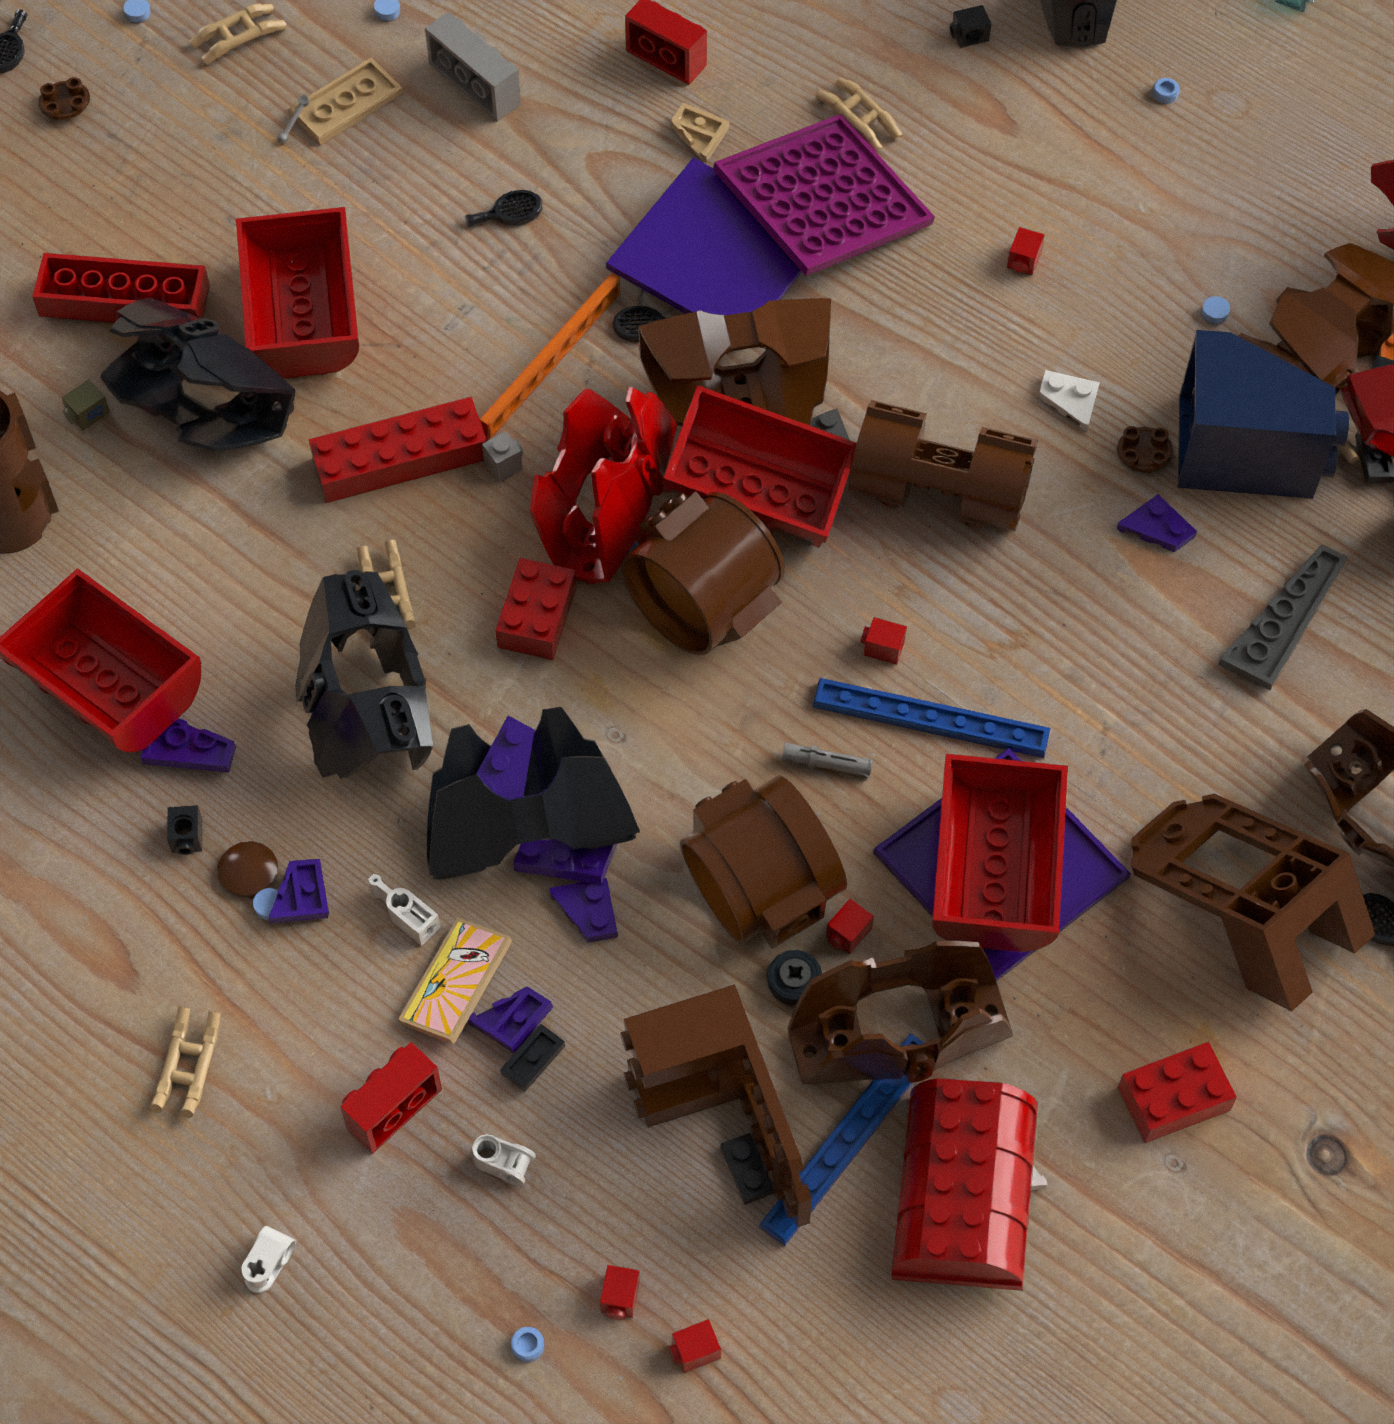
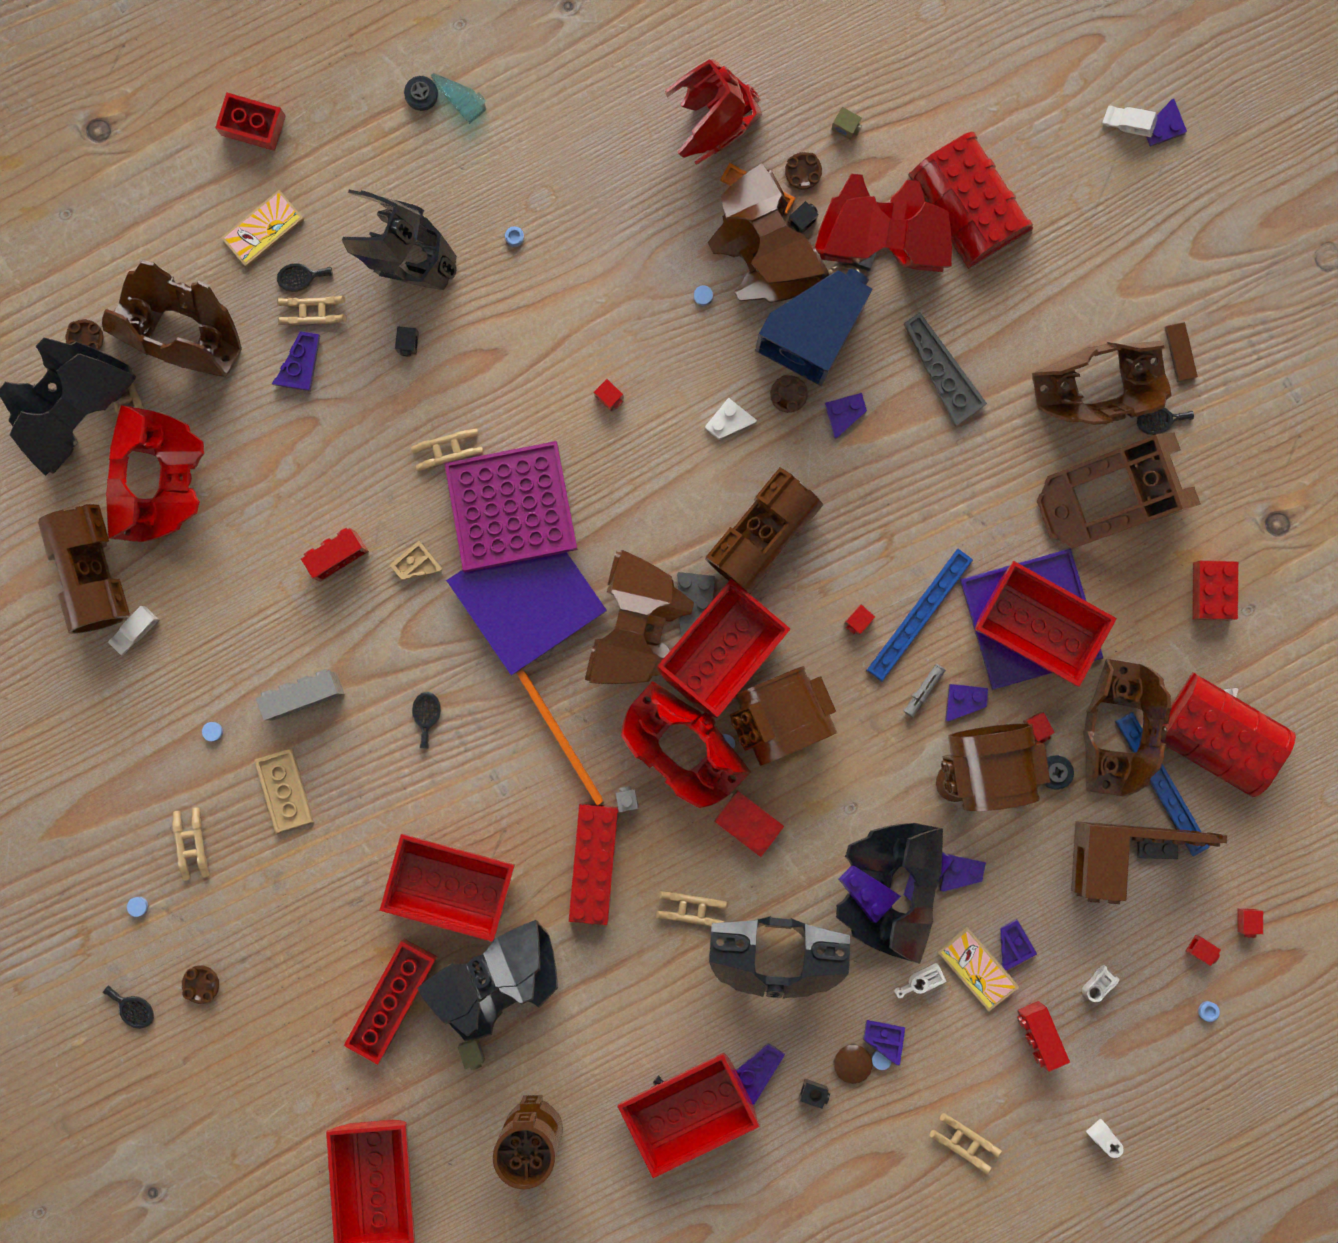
camera: 65 degrees left, 25 degrees up
(303, 102) = (277, 822): light grey hinge -> none
(532, 1057) = (1044, 943): black plate -> none
(631, 311) = (565, 644): black piece -> none
(843, 820) = (964, 700): none -> dark purple wing

